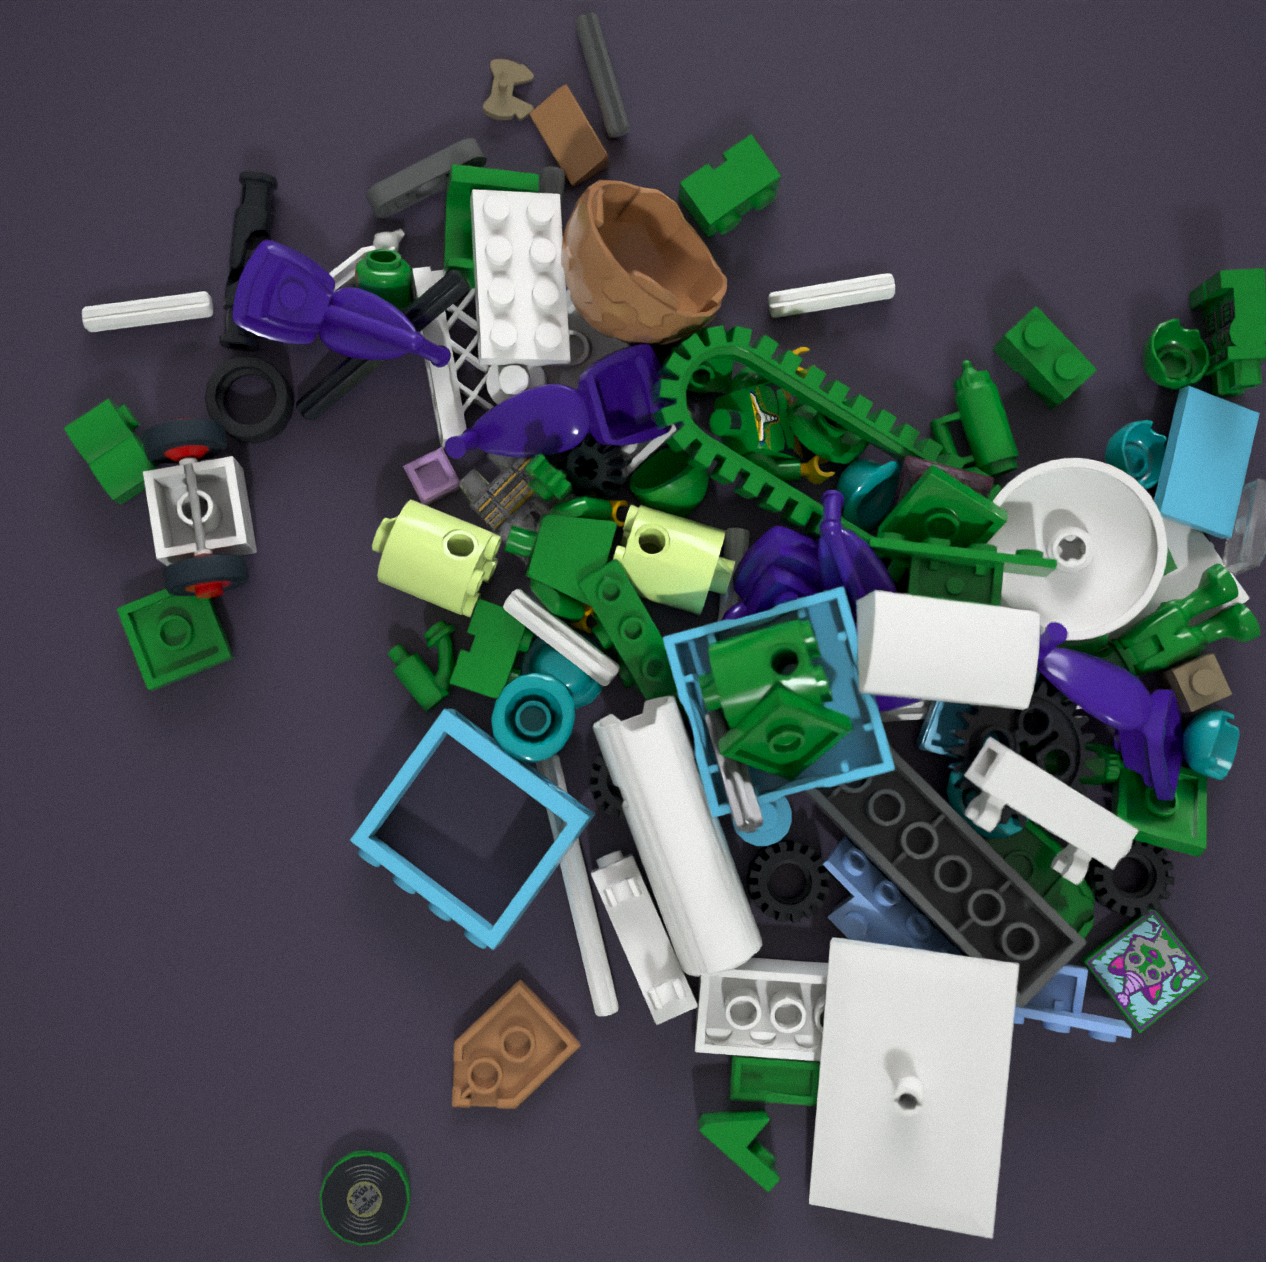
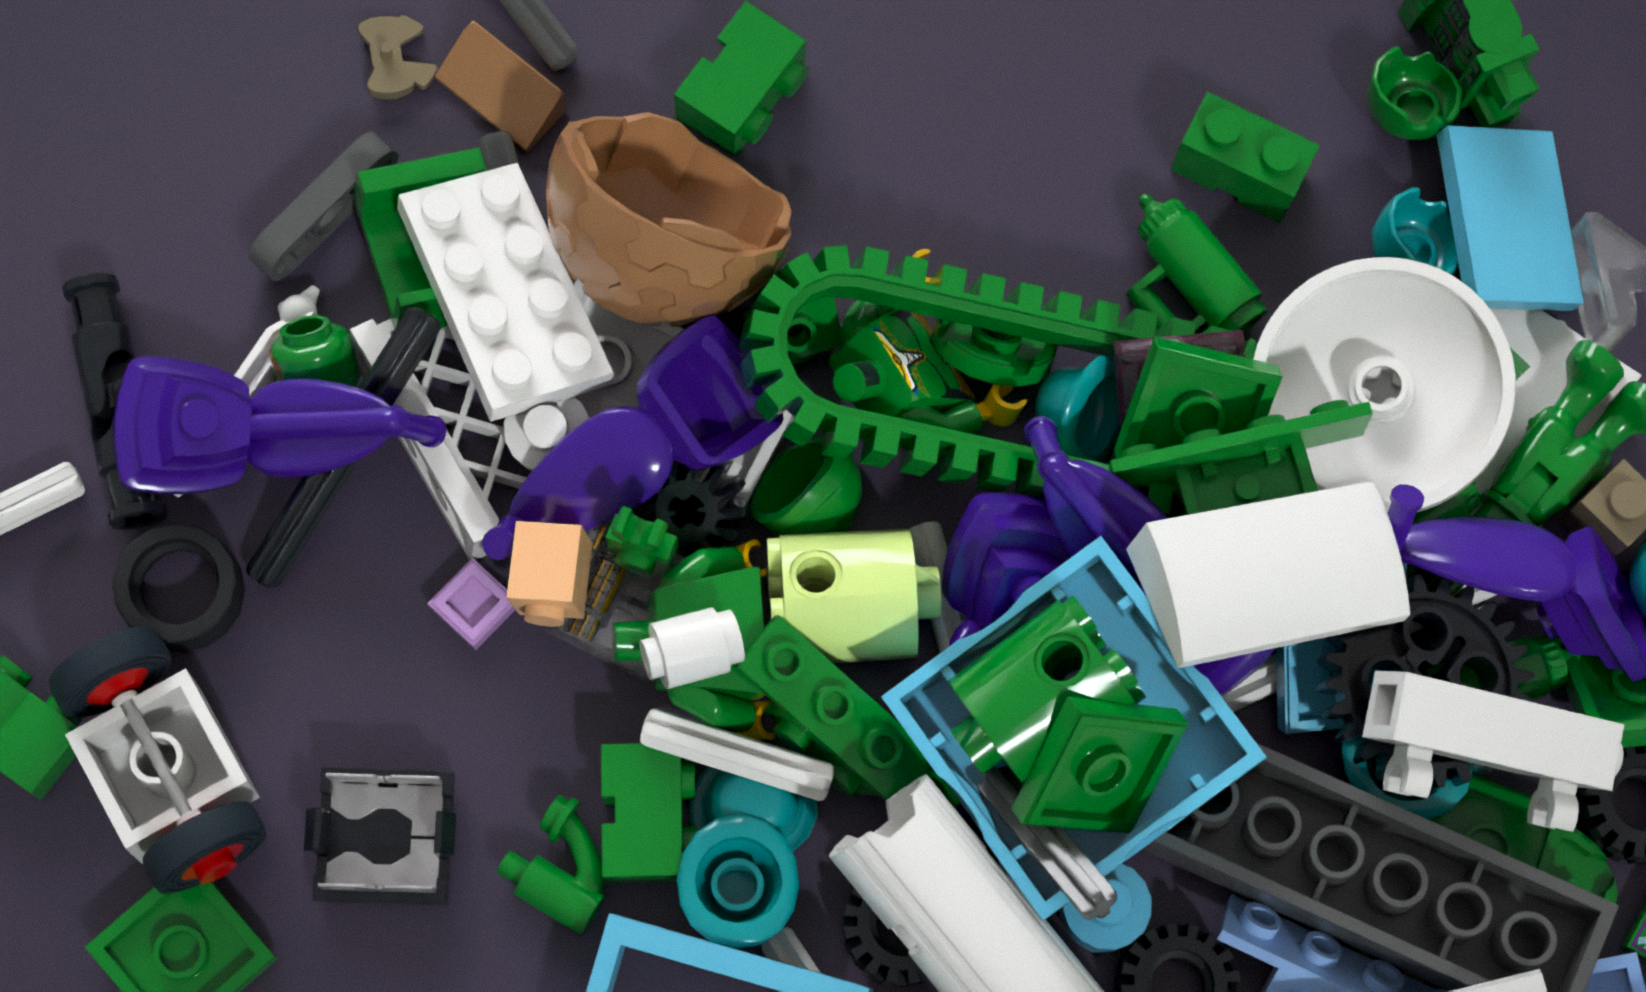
camera: 20 degrees left, 10 degrees down
(324, 605) = (382, 836): none -> piece
(436, 557) = (521, 707): yellowish green cylinder -> none
(482, 477) = (549, 572): none -> light nougat brick
(553, 561) = (692, 647): none -> white brick
(831, 295) = (930, 173): white axle -> none

